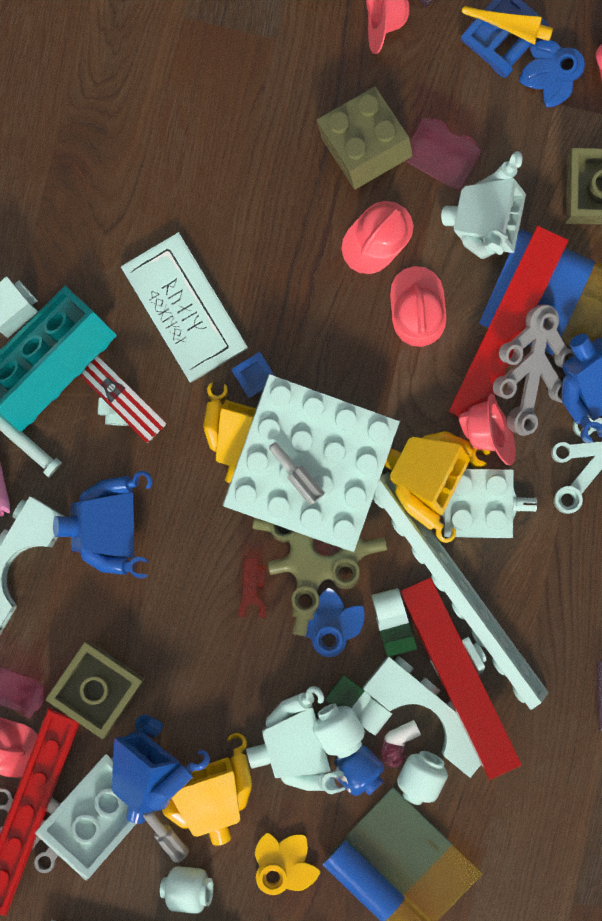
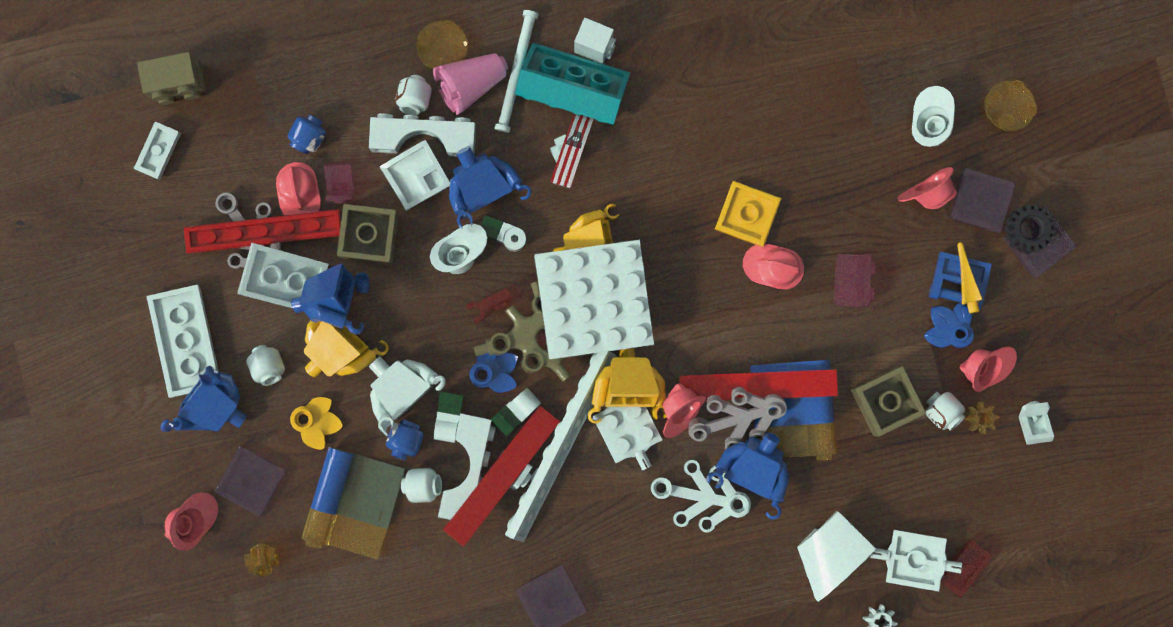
camera: 50 degrees right, 0 degrees up
(54, 598) = (415, 175): none -> light aqua plate
(167, 838) = (293, 334): light grey axle -> none
(169, 591) = (459, 249): none -> light aqua piece
(184, 307) = (656, 160): light aqua tile -> none
(184, 523) = (504, 233): none -> light aqua leg
(252, 374) = (635, 230): blue plate -> none
(298, 476) = (580, 295): light grey axle -> none
(301, 234) = (748, 214): none -> yellow tile
(338, 730) = (424, 411): light aqua head -> none
(365, 137) = (836, 222): olive brick -> none
(395, 741) = (435, 455): arm -> none
(418, 306) = (740, 318): coral piece -> none
(489, 211) = (829, 332): light aqua torso -> none

